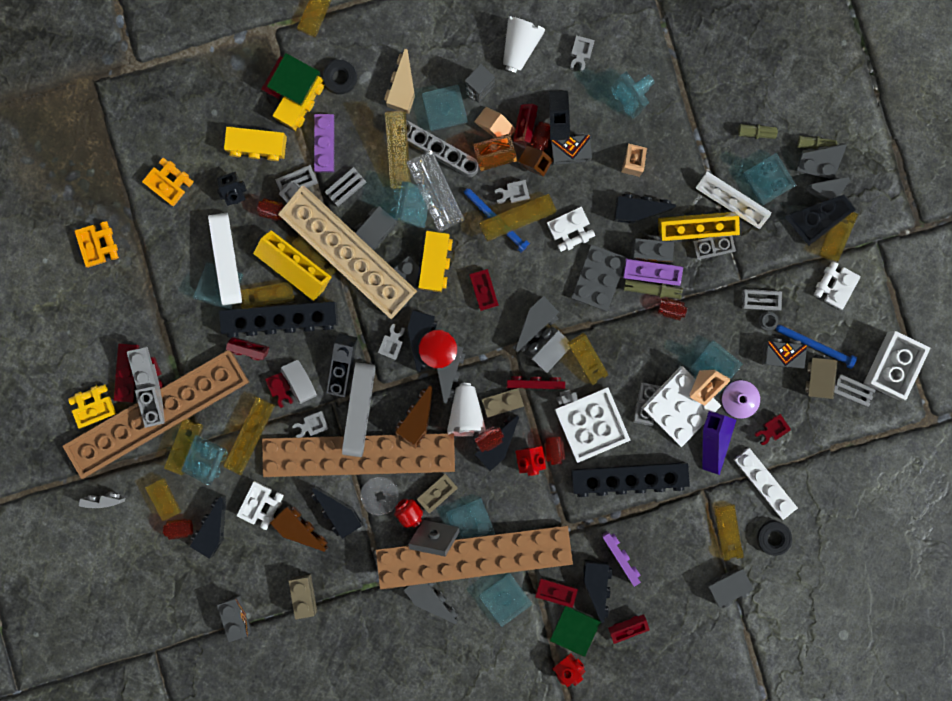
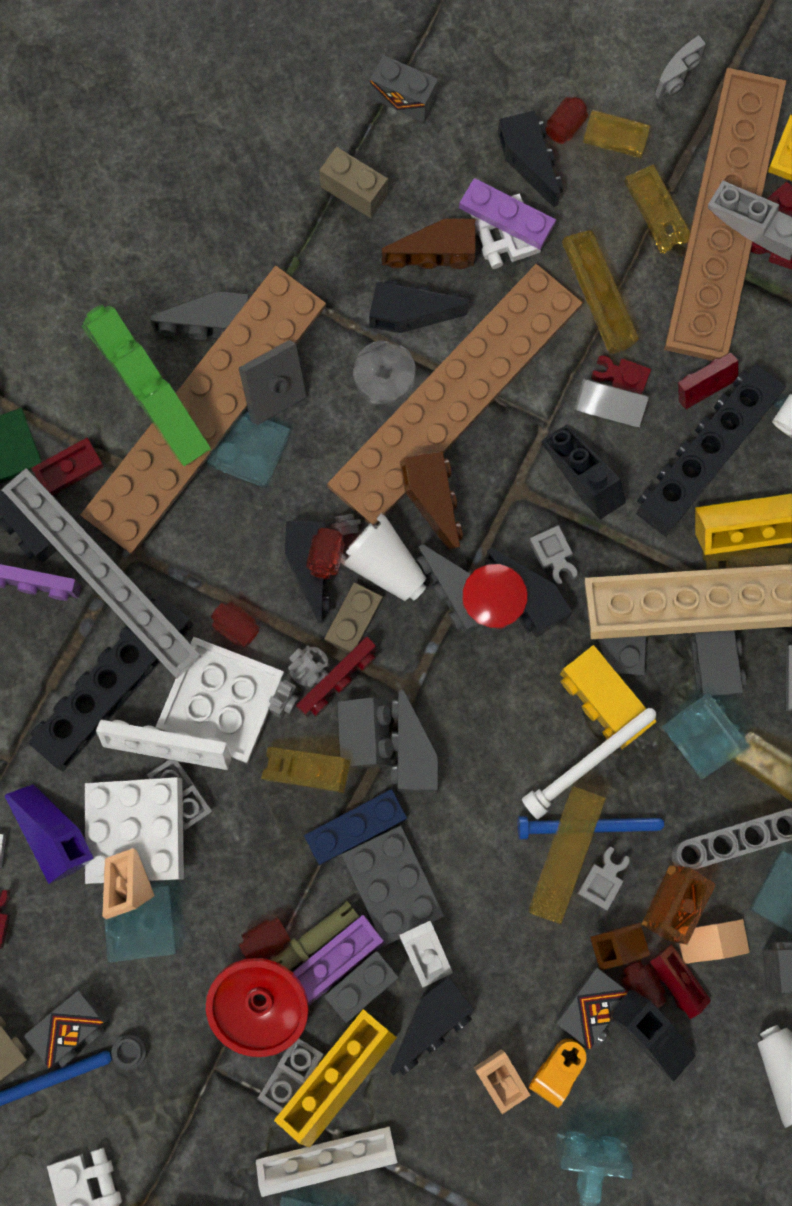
camera: 135 degrees right, 10 degrees down
(204, 460) = (620, 212): clear light blue plate -> none
(252, 511) = (507, 213): none -> medium lavender plate
(267, 295) = (751, 463): clear yellow plate -> none
(314, 424) = (543, 375): light grey plate -> none
(358, 410) = (510, 439): light grey beam -> none
(408, 513) = (331, 385): red head -> none
(437, 190) = (696, 783): clear fence -> none
(437, 493) = (321, 440): dark tan plate -> none
(465, 445) = (346, 524): none -> dark grey plate
(484, 290) = (514, 725): dark red plate -> none
(490, 593) = (145, 383): none -> bright green arch
(505, 599) = (113, 407): clear light blue plate -> none
(507, 249) = (539, 801): none -> white piece
(531, 460) = (251, 583): red brick -> none
(542, 400) = (308, 666): none -> light grey gear
(567, 224) = (498, 912): white plate -> none
(581, 50) = (711, 1151): light grey plate -> none
(590, 316) = (355, 827): none -> dark blue plate
(590, 528) = (101, 573): none -> light grey plate
(611, 139) = (555, 1077): none -> light orange piece
(614, 237) = (426, 953): none -> white slope
(637, 435) = (163, 744): none -> white plate
(708, 279) = (254, 1025): none -> red dish
(731, 397) = (85, 919): lavender dish -> none
(745, 299) = (184, 1050): light grey tile -> none

